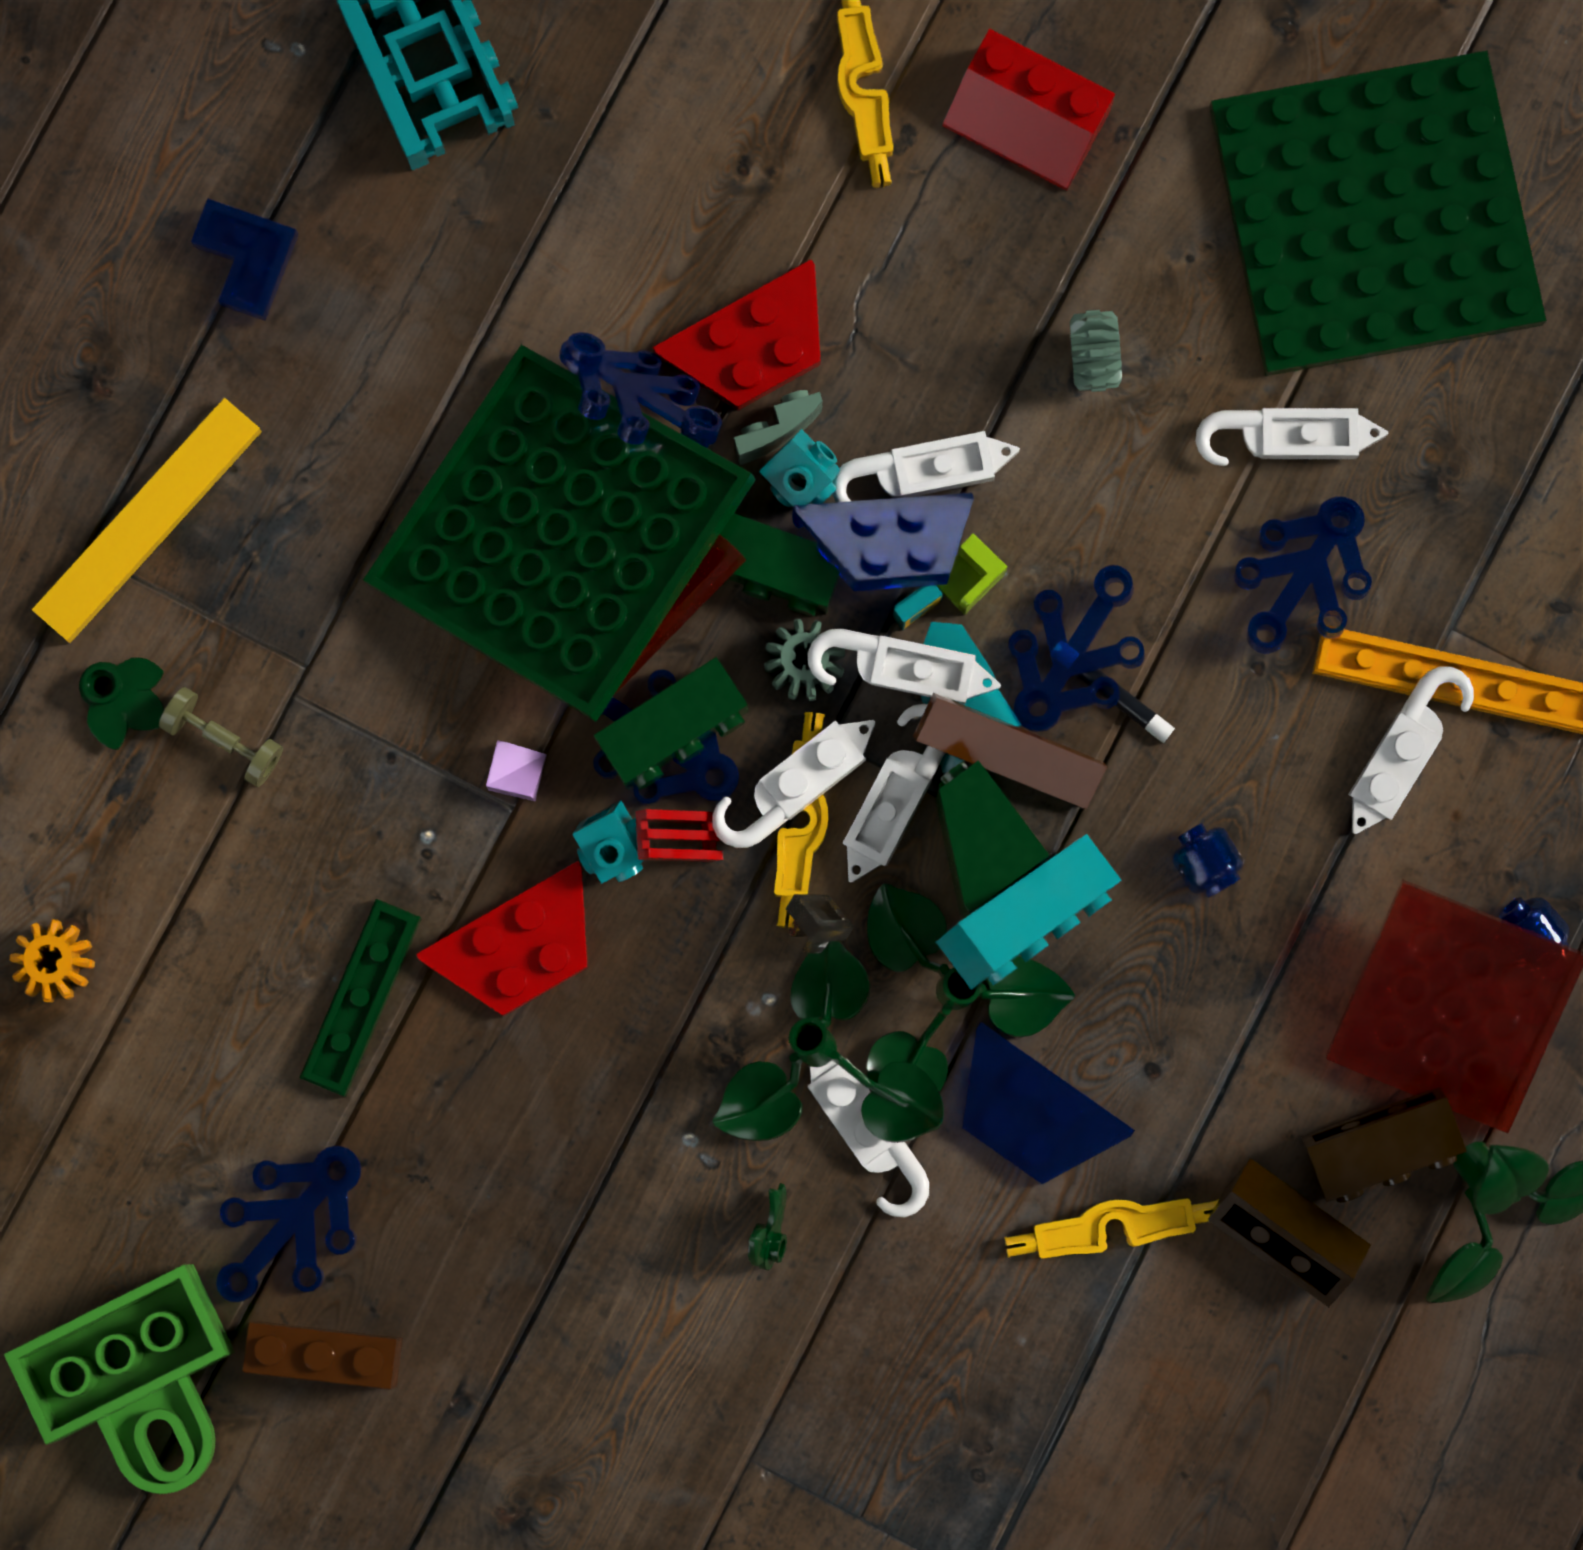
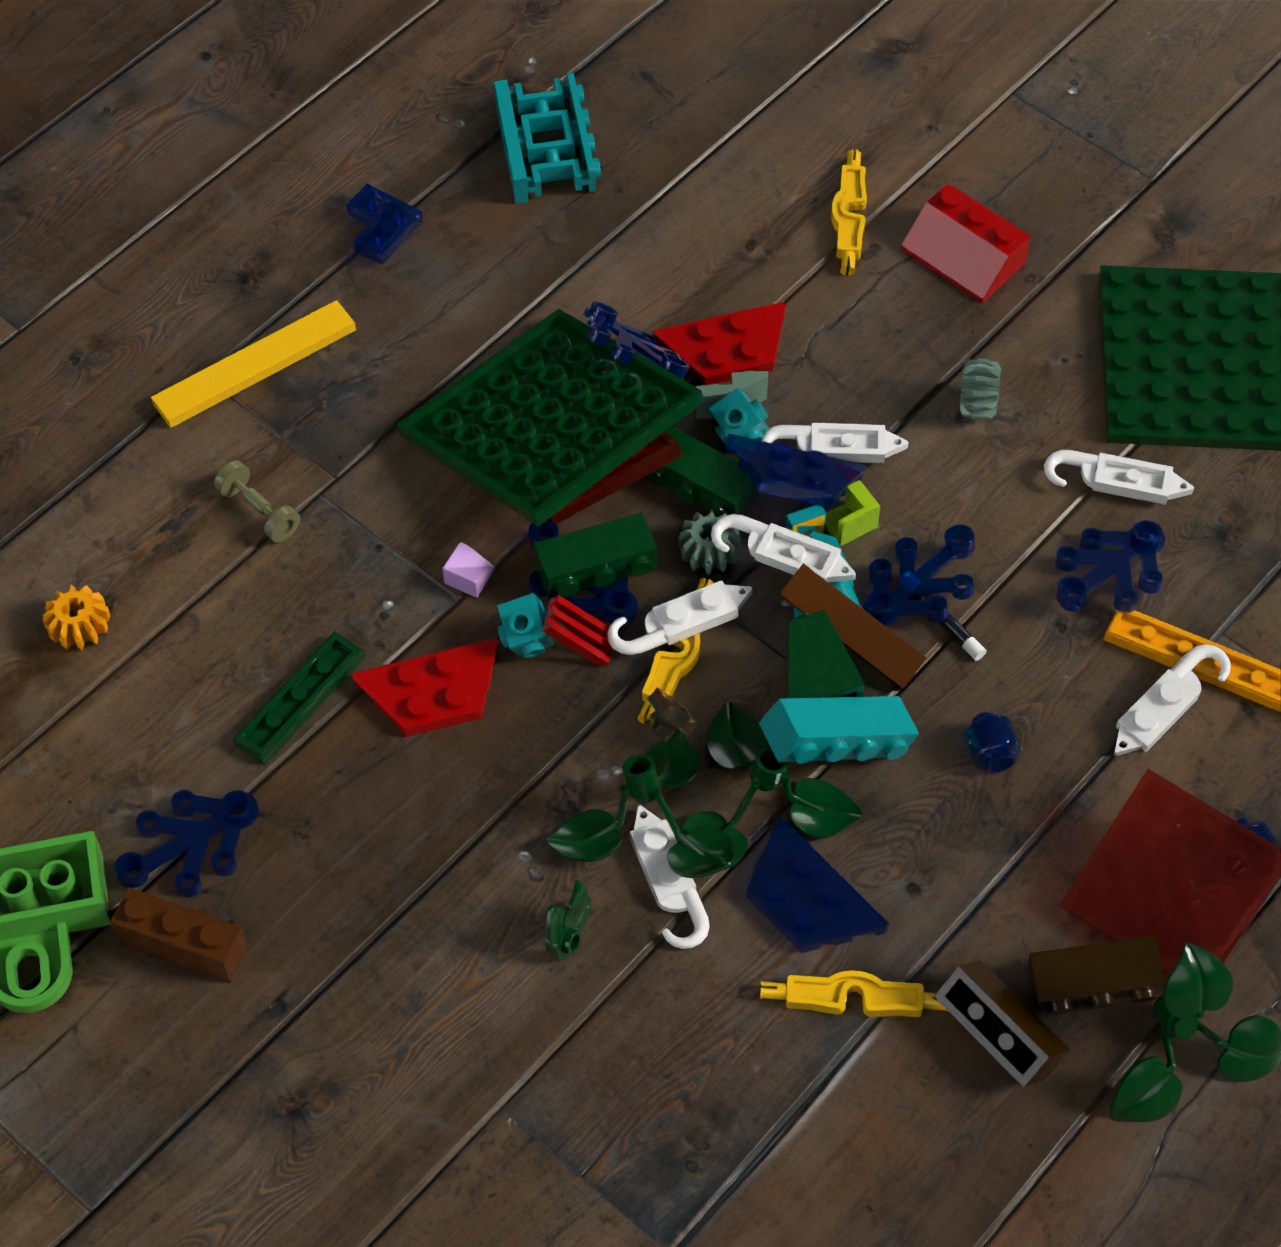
camera: 15 degrees right, 25 degrees down
(128, 703) = (195, 470): dark green plate -> none
(890, 804) = (747, 651): white plate -> none

